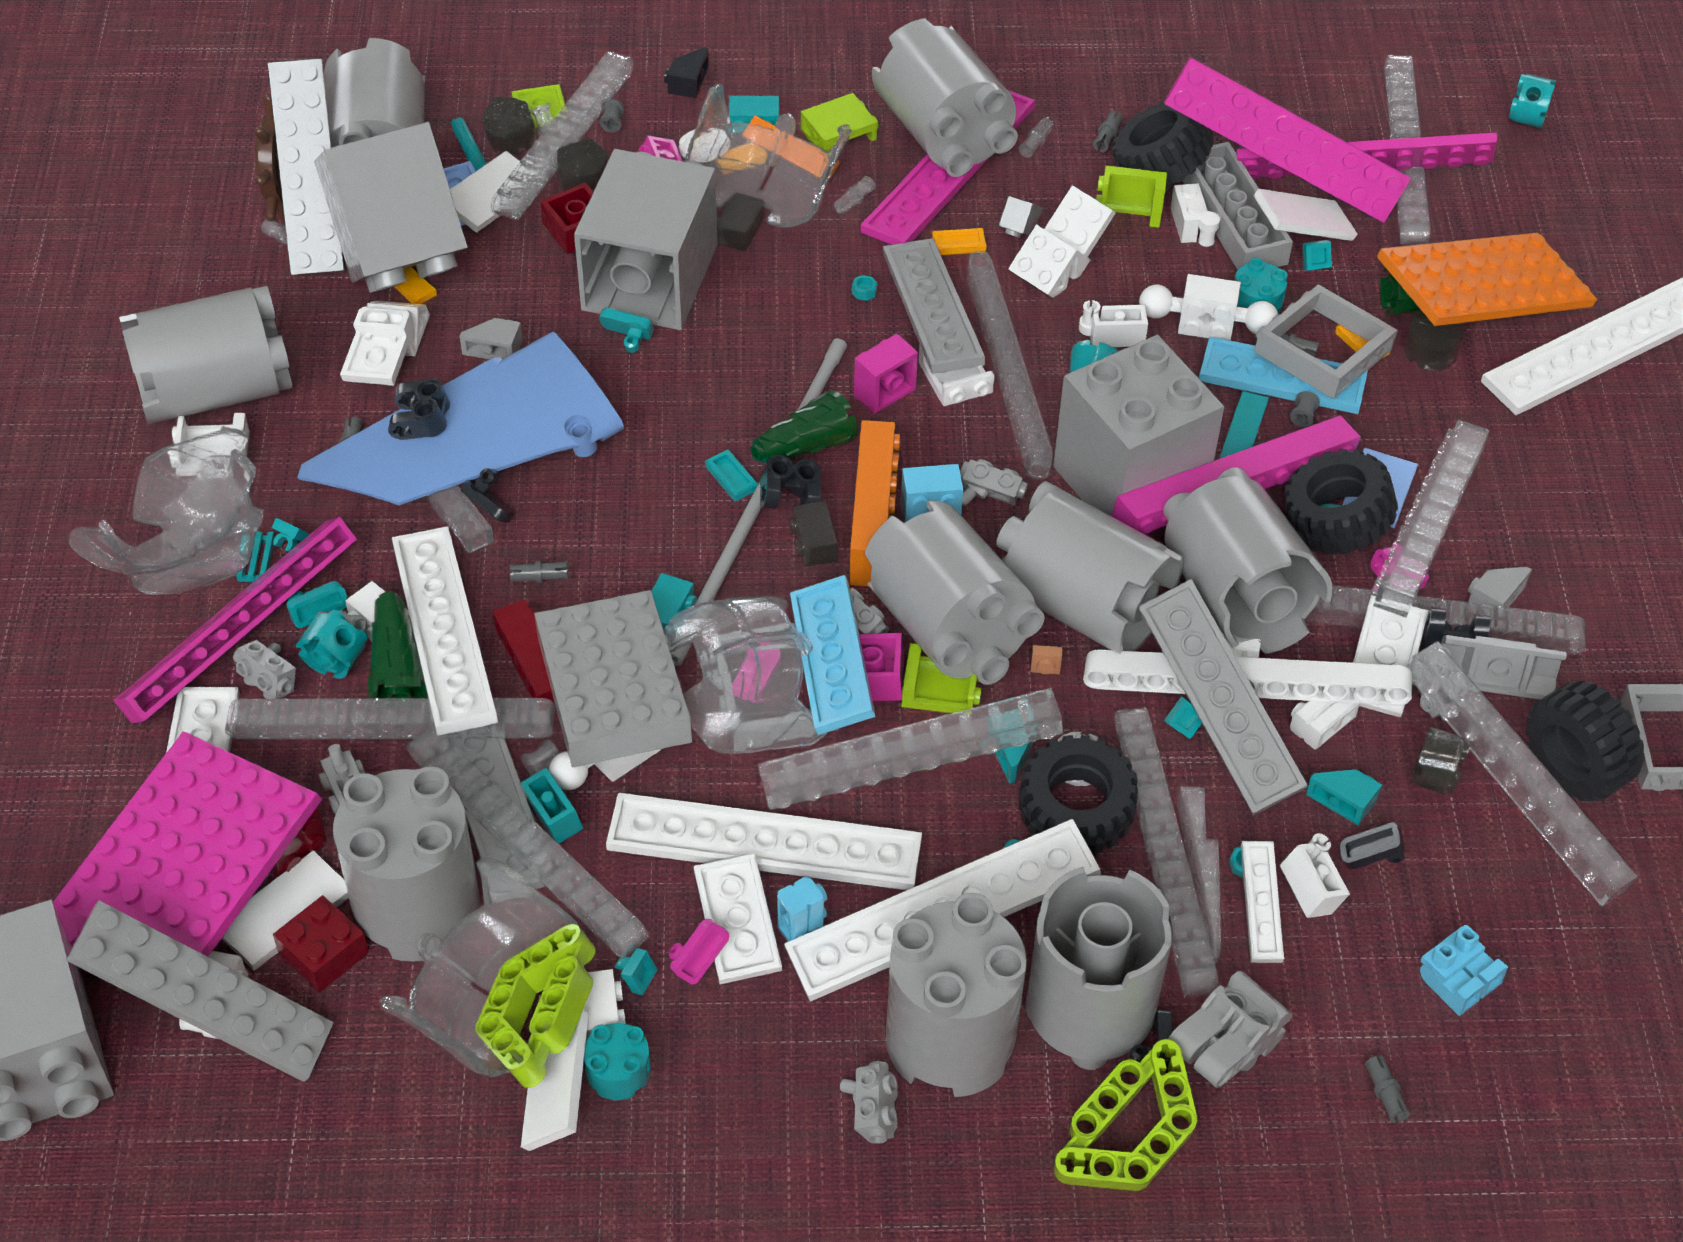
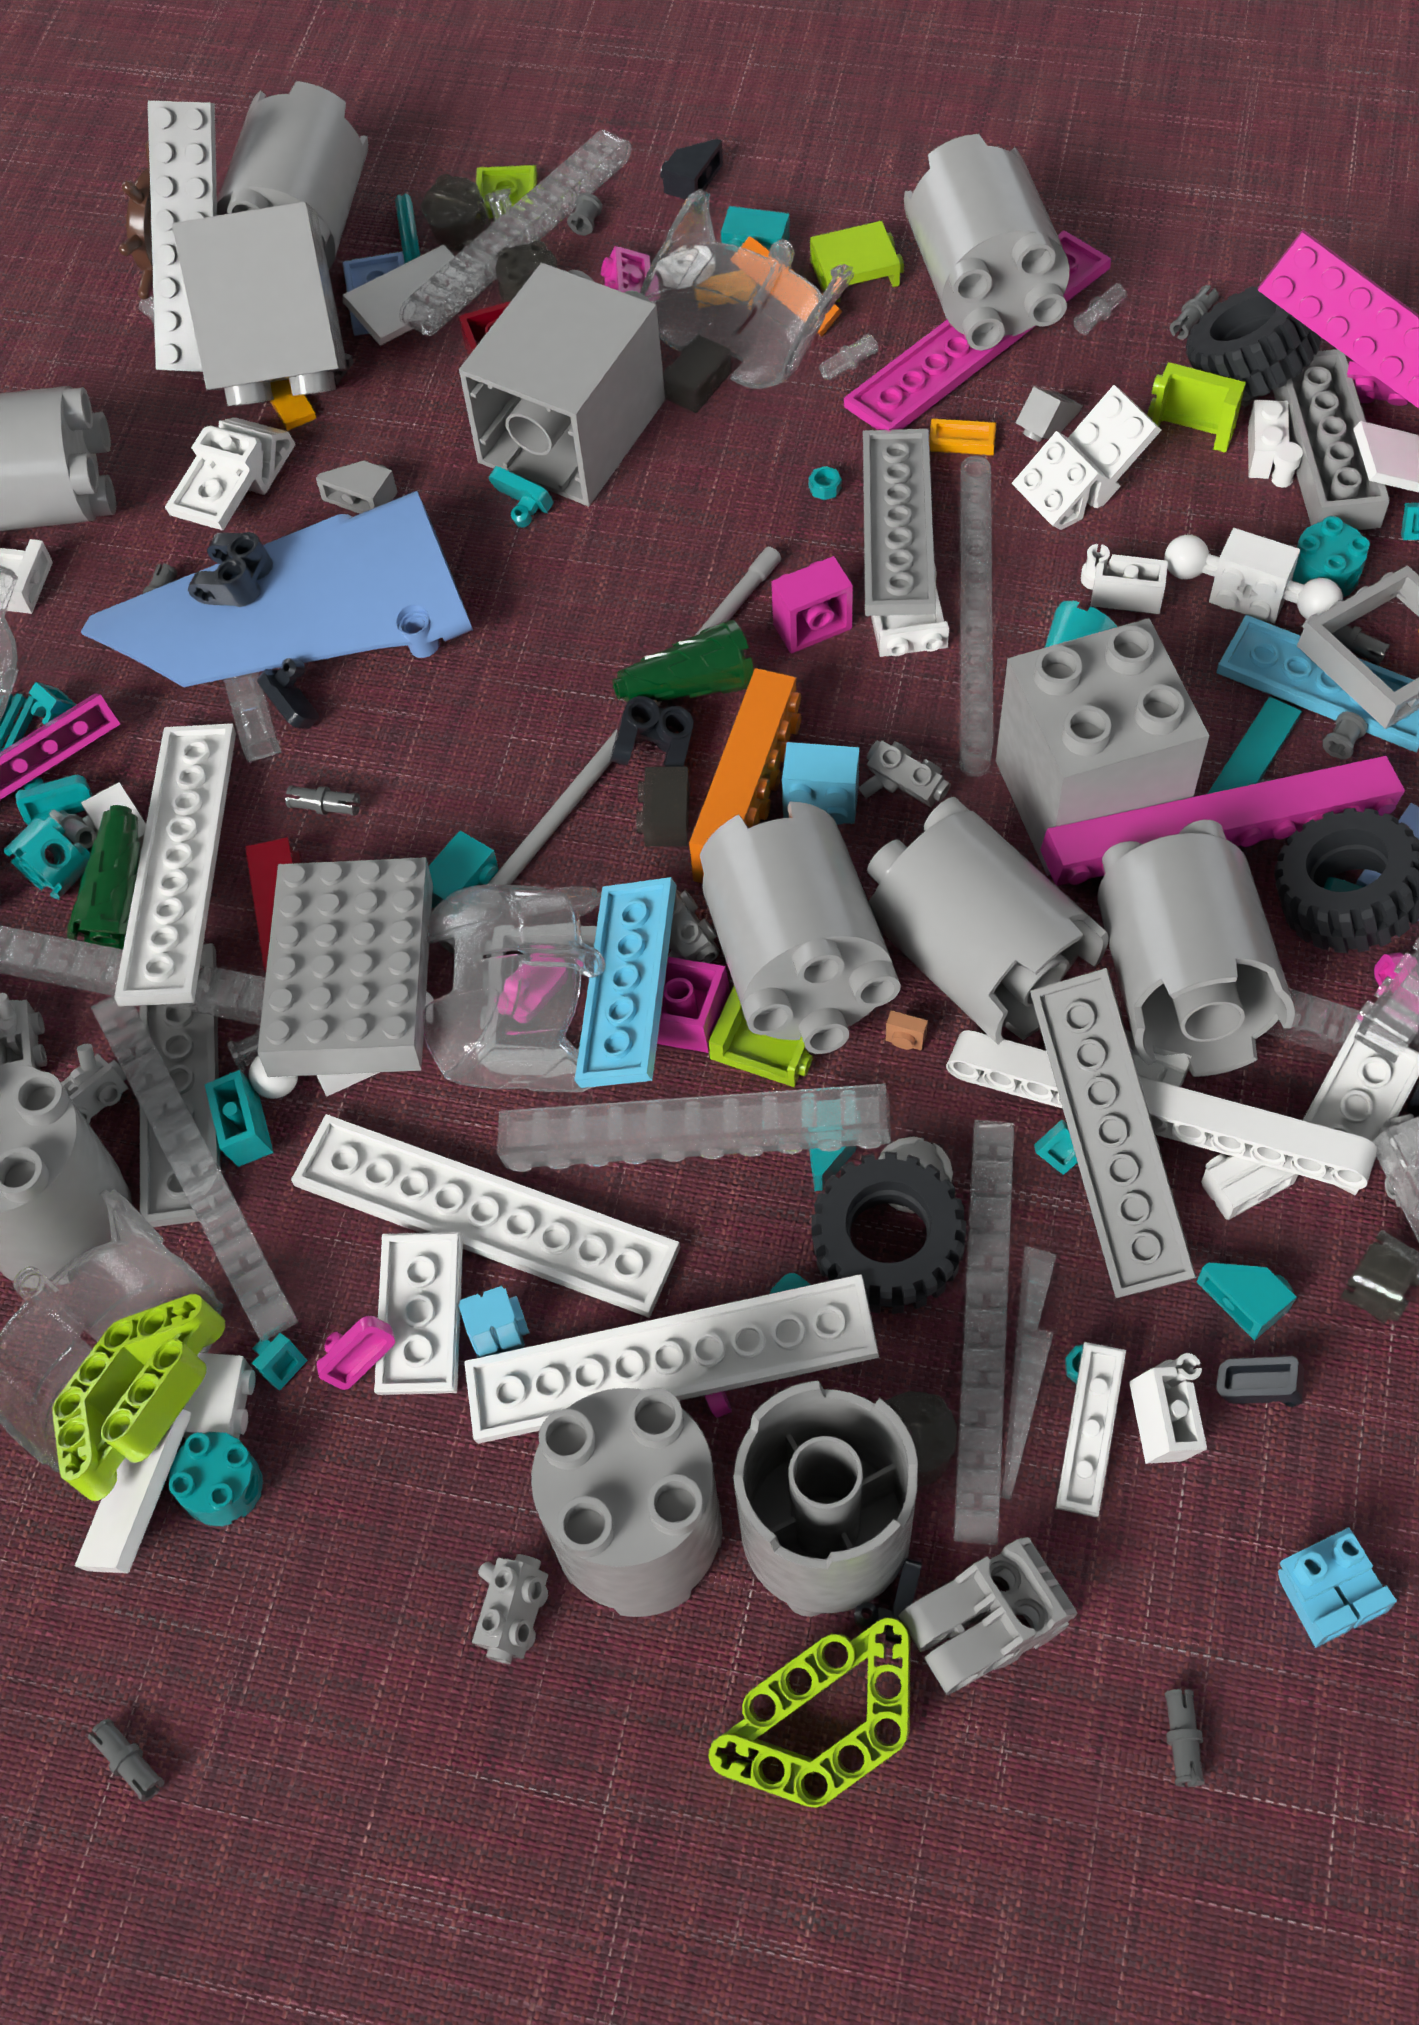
camera: 20 degrees right, 10 degrees up
(731, 475) = (590, 709): teal tile -> none

